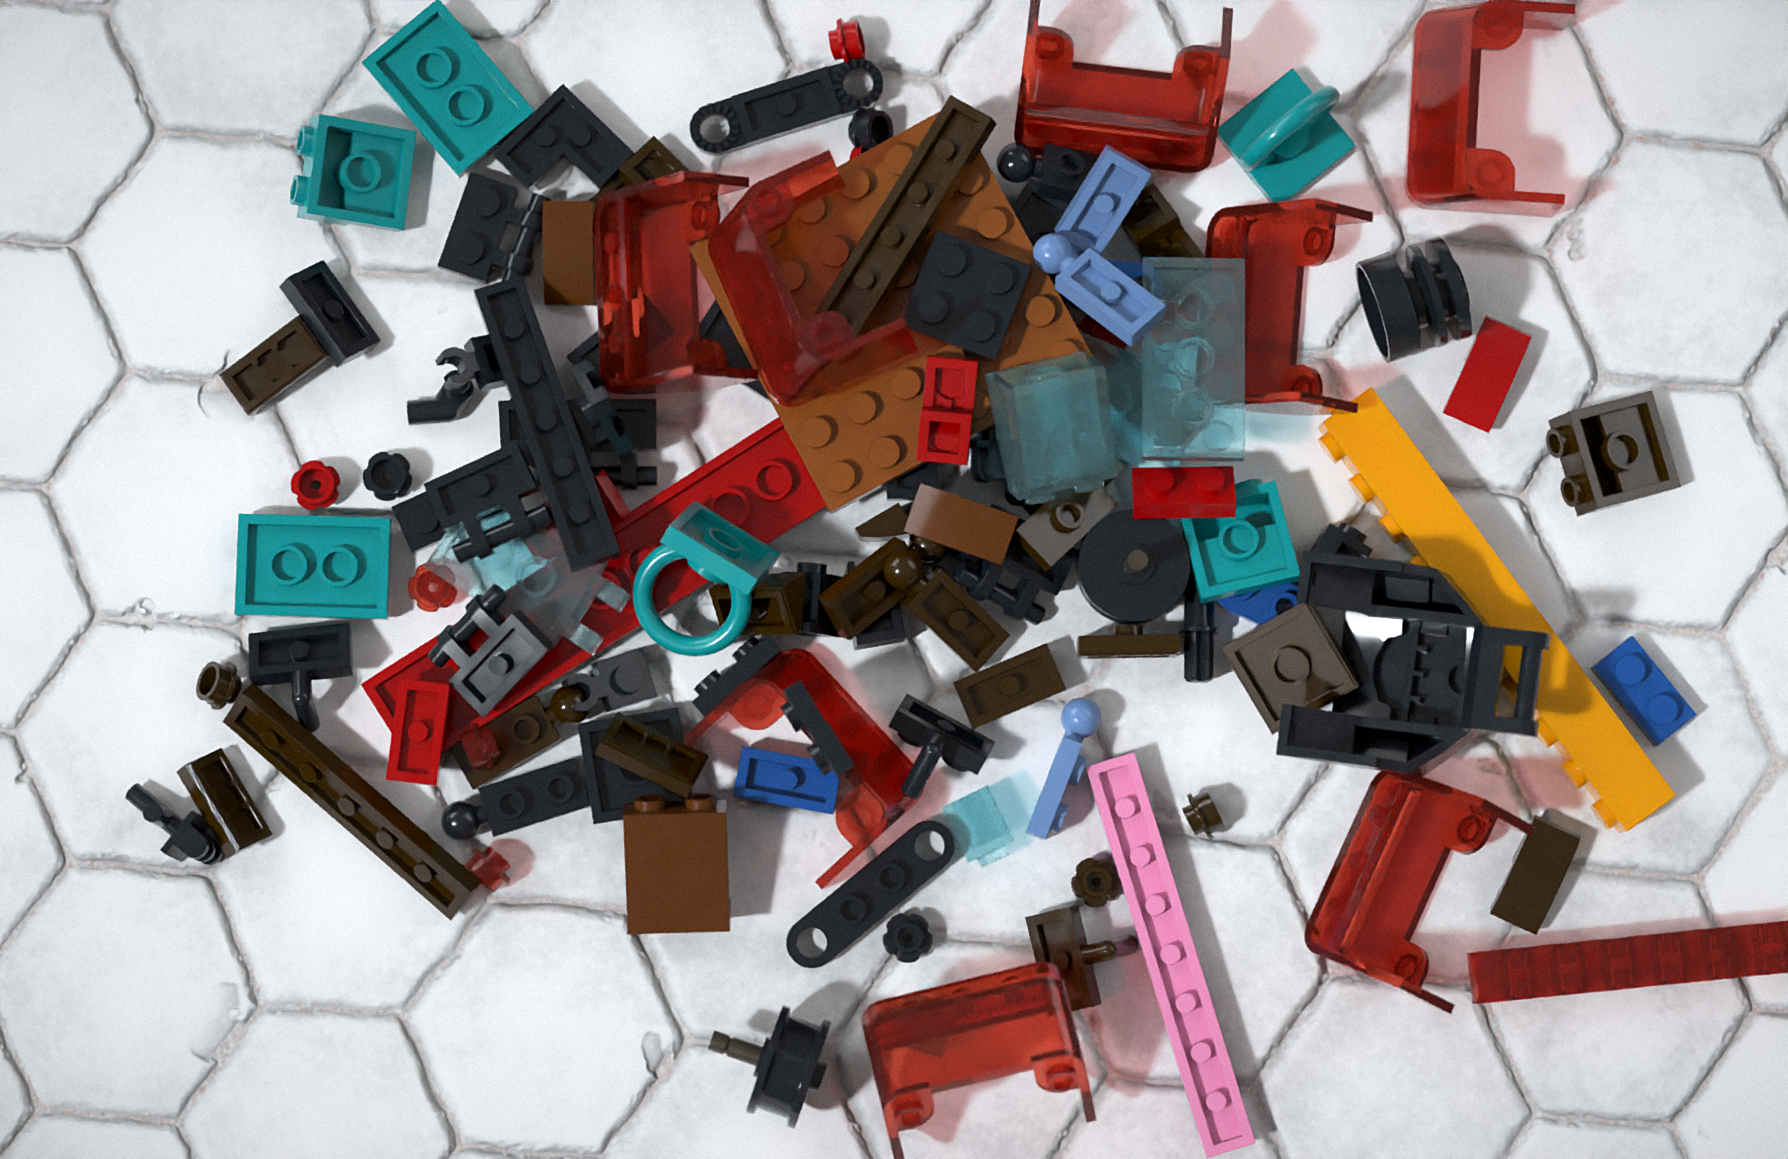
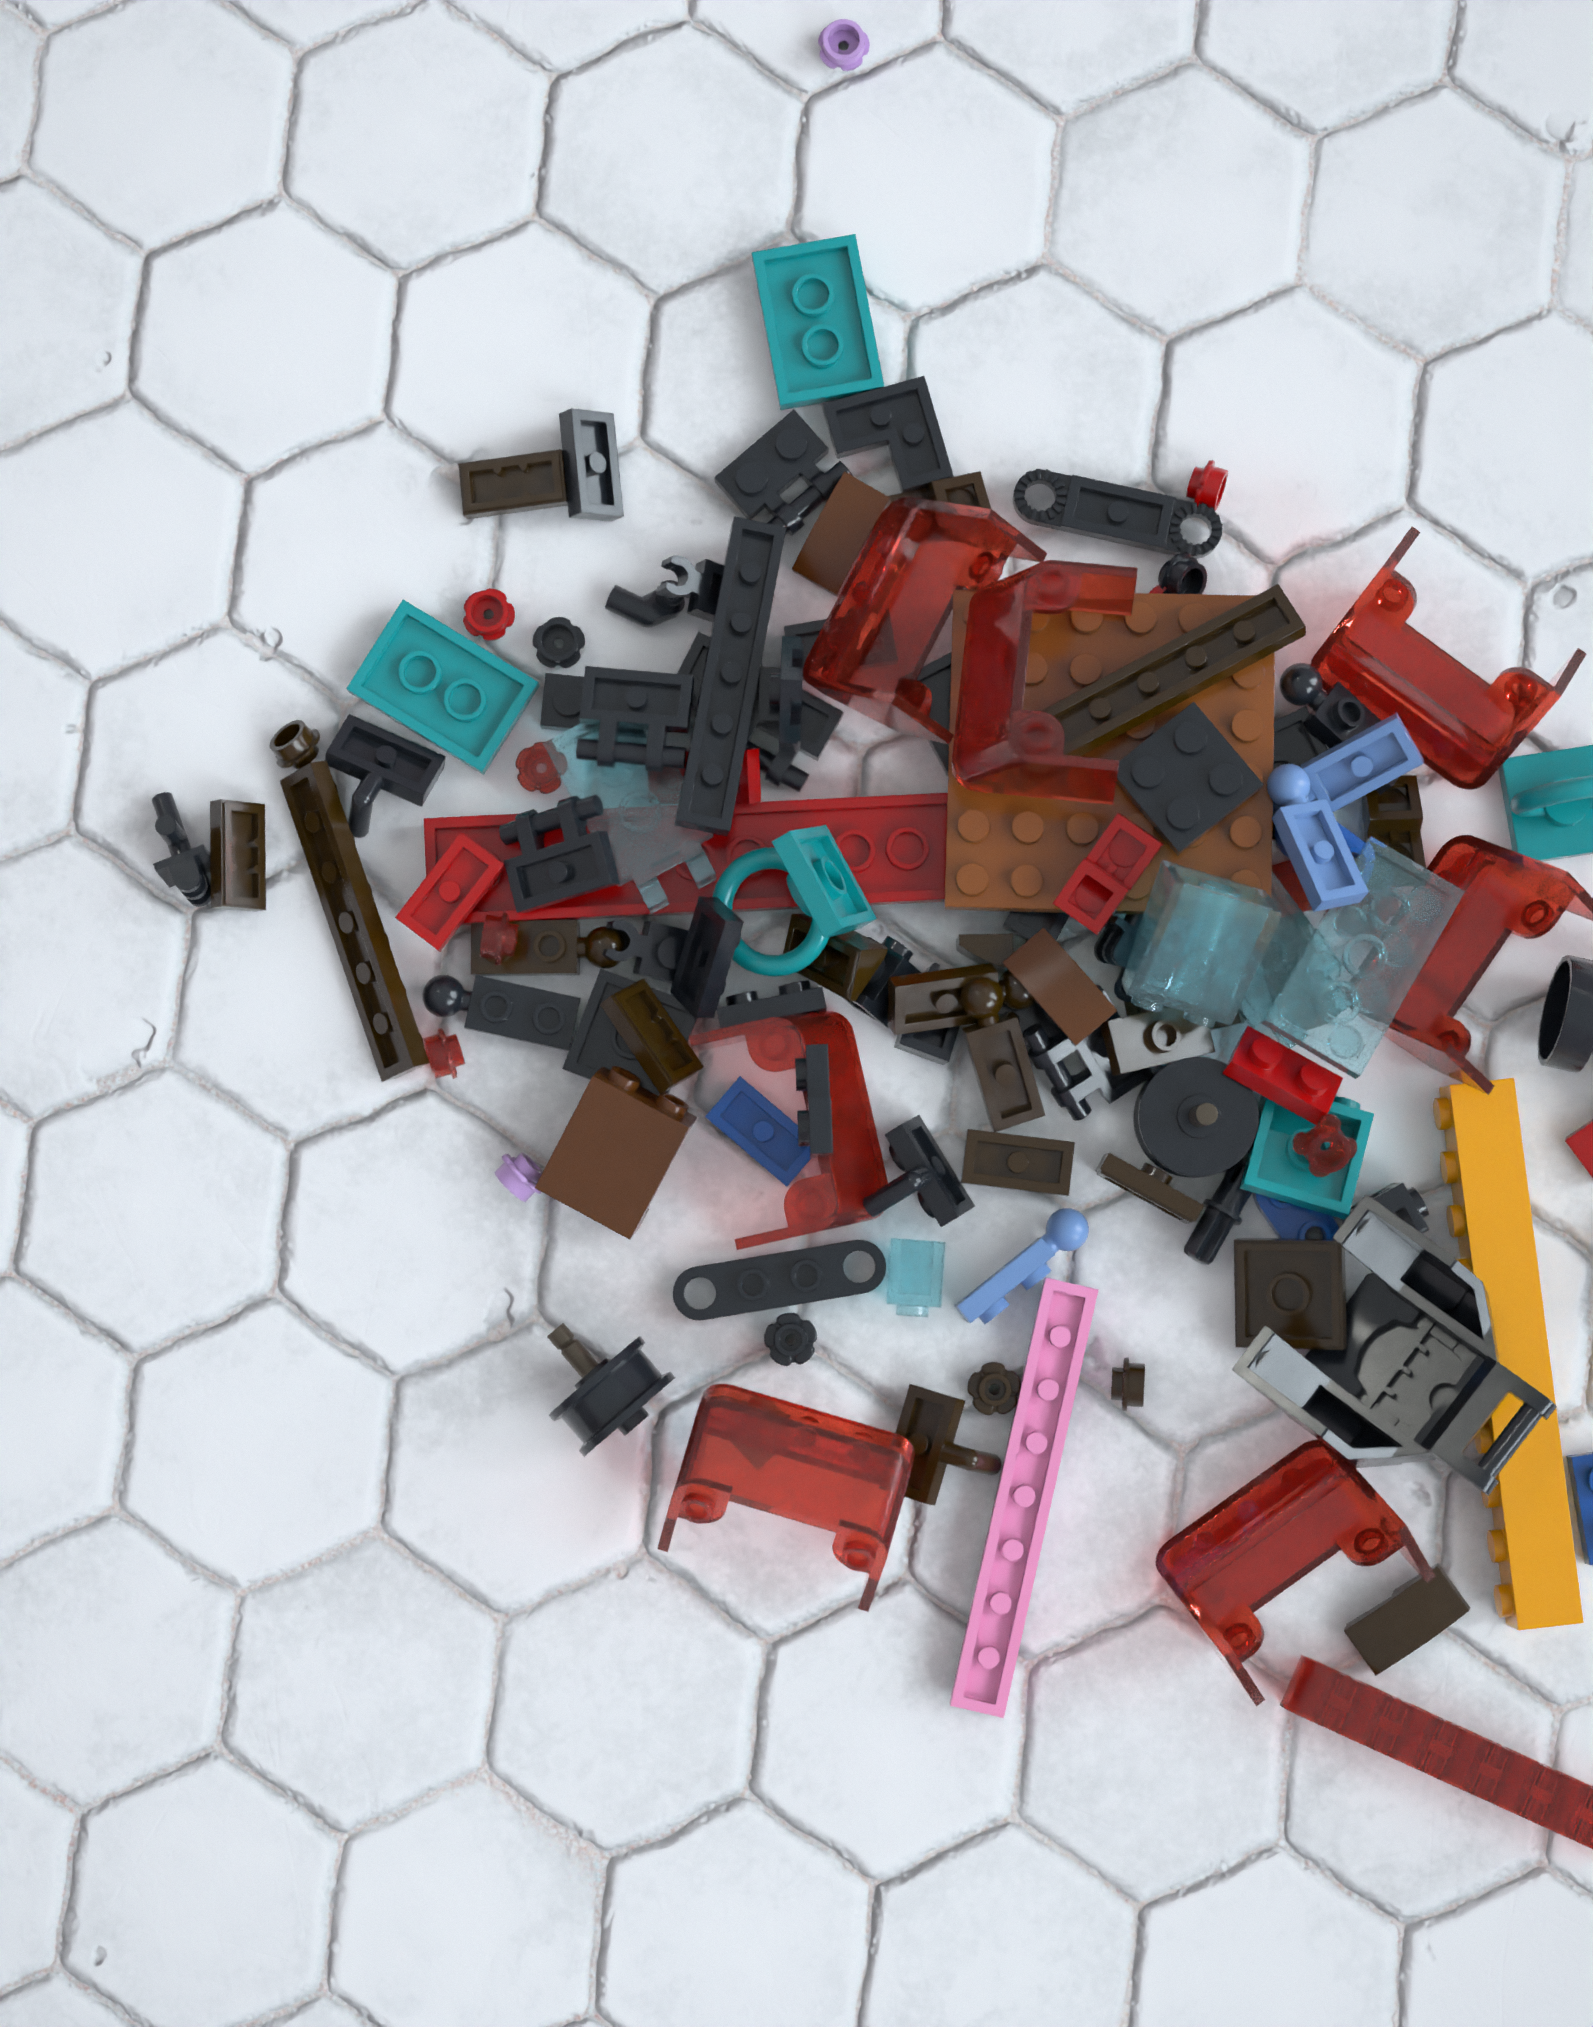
camera: 30 degrees right, 0 degrees up
(353, 173) = (686, 349): teal plate -> none
(609, 931) = (519, 1175): none -> lavender plate
(659, 665) = (706, 957): none -> black plate
(1261, 536) = (1335, 1156): none -> clear red plate

